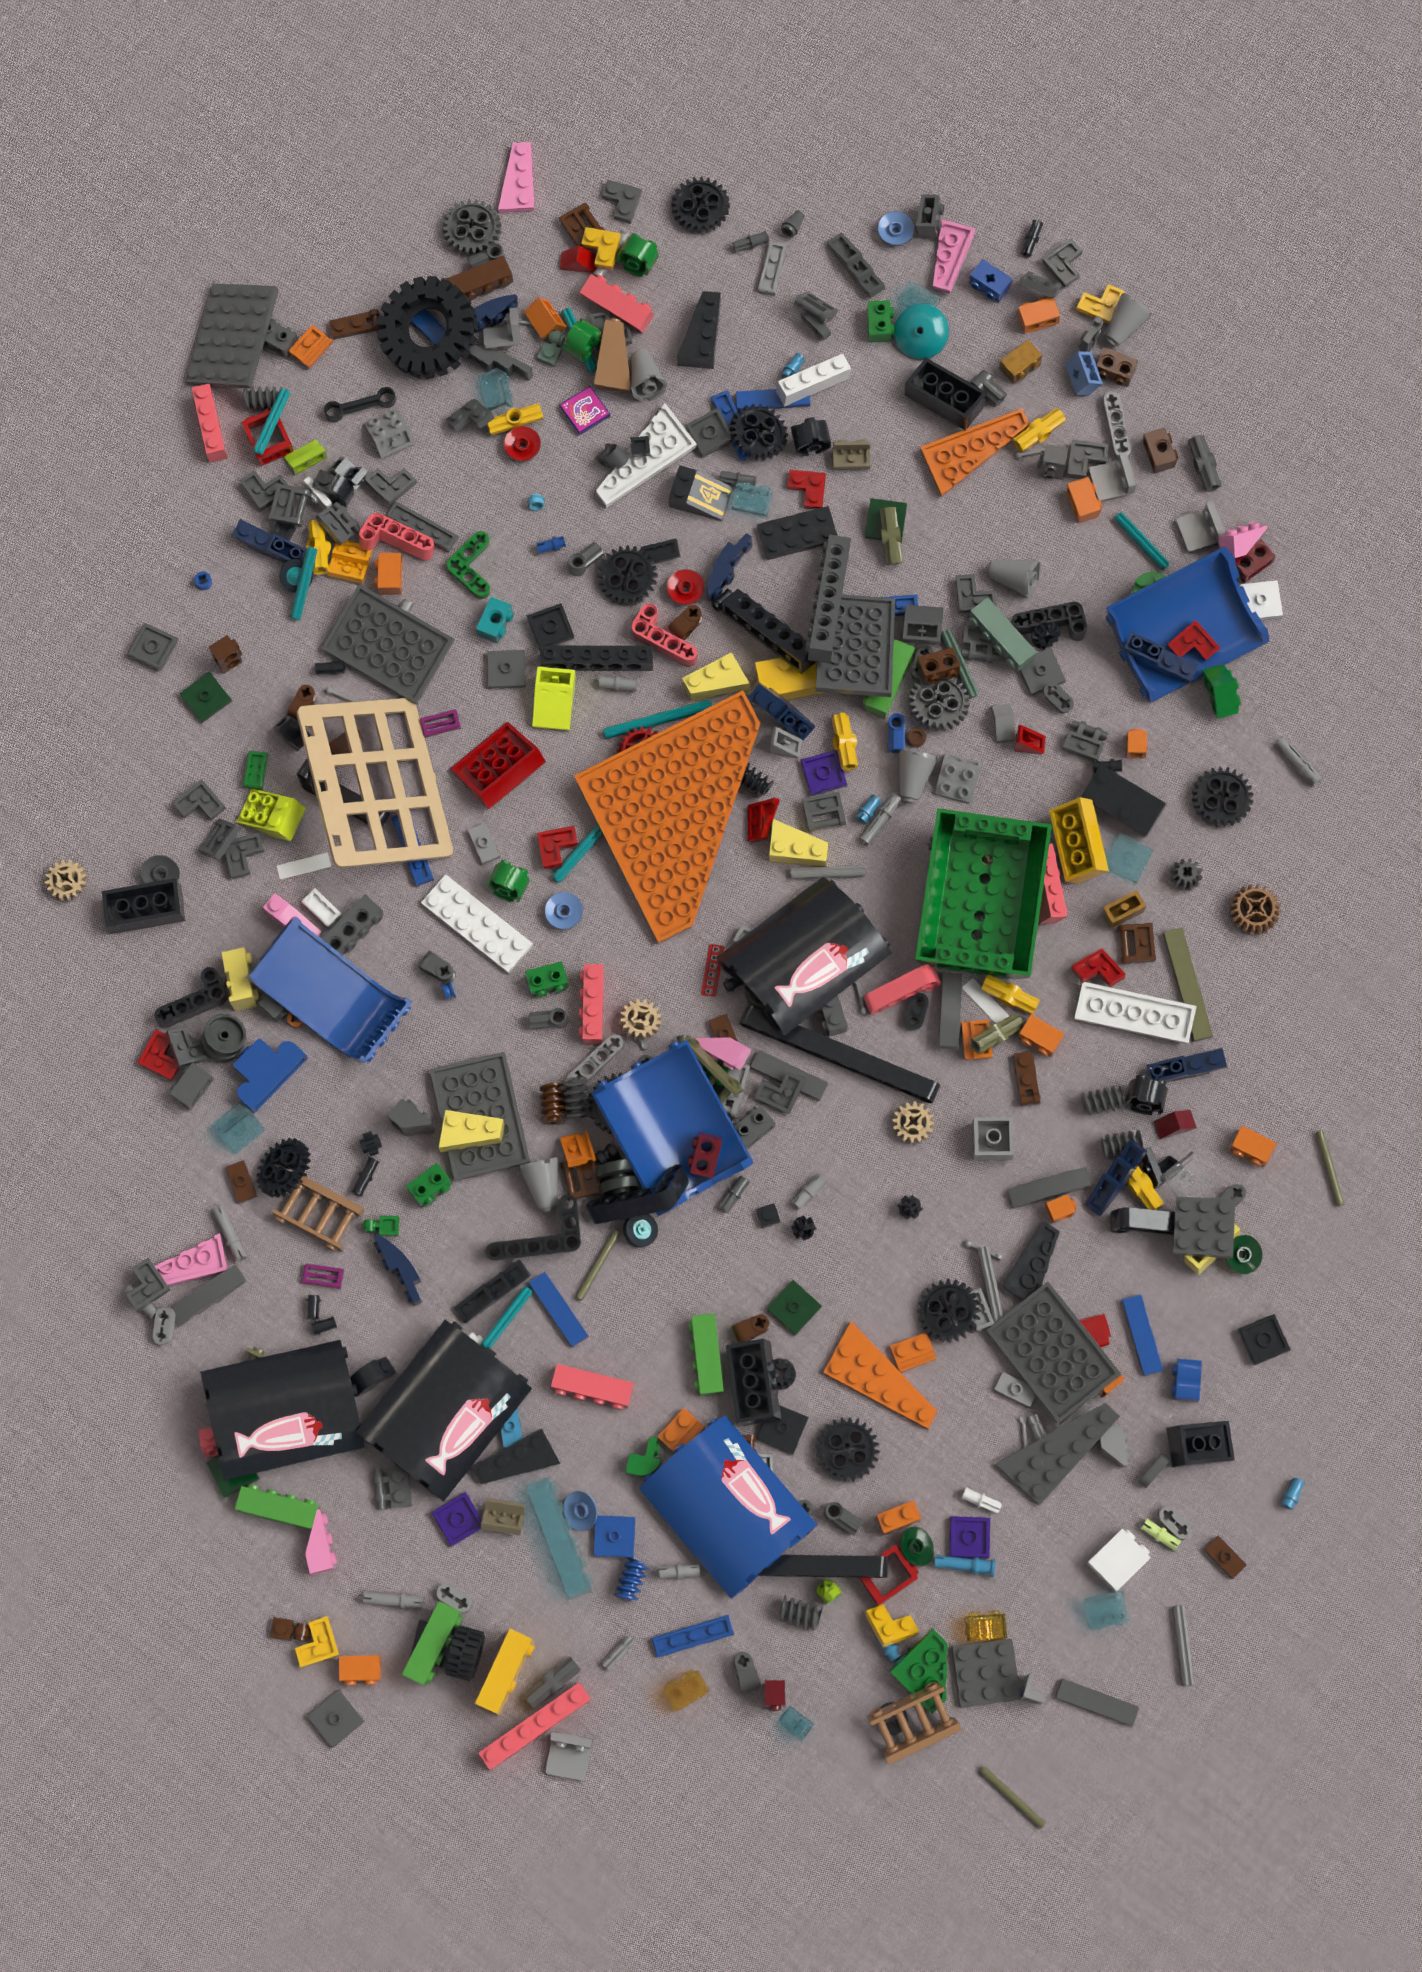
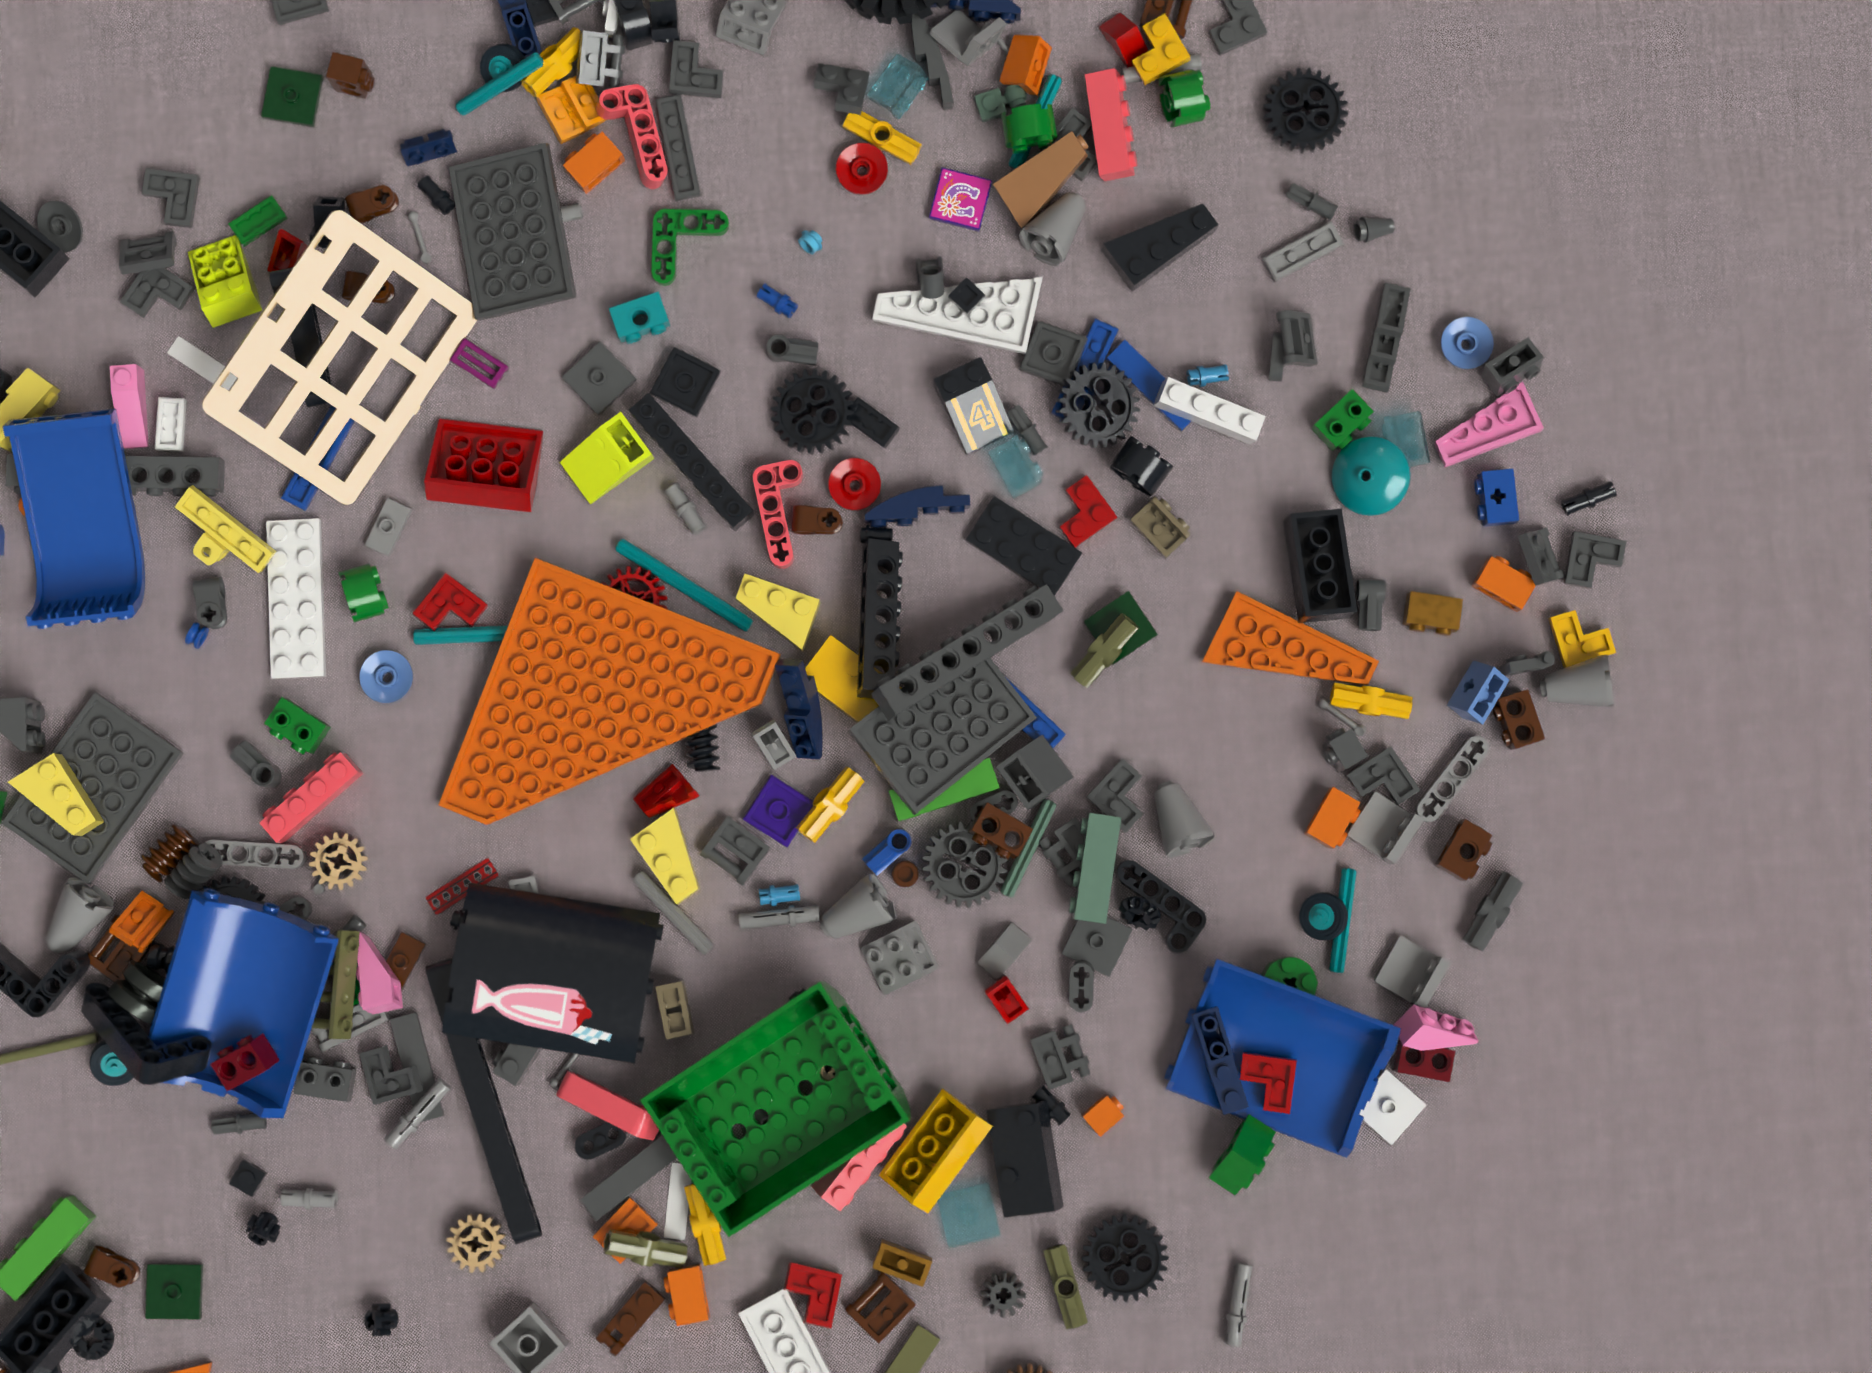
camera: 40 degrees right, 10 degrees up
(288, 769) = (285, 251): none -> red slope
(304, 644) = (417, 151): none -> dark blue hinge
(407, 926) = (222, 532): none -> light yellow plate
(816, 1101) = (396, 1137): none -> light grey pin
(882, 911) = (674, 1010): none -> dark tan brick
(1131, 546) = (1323, 916): none -> black wheel
(1221, 845) = (1071, 1302): none -> olive piece

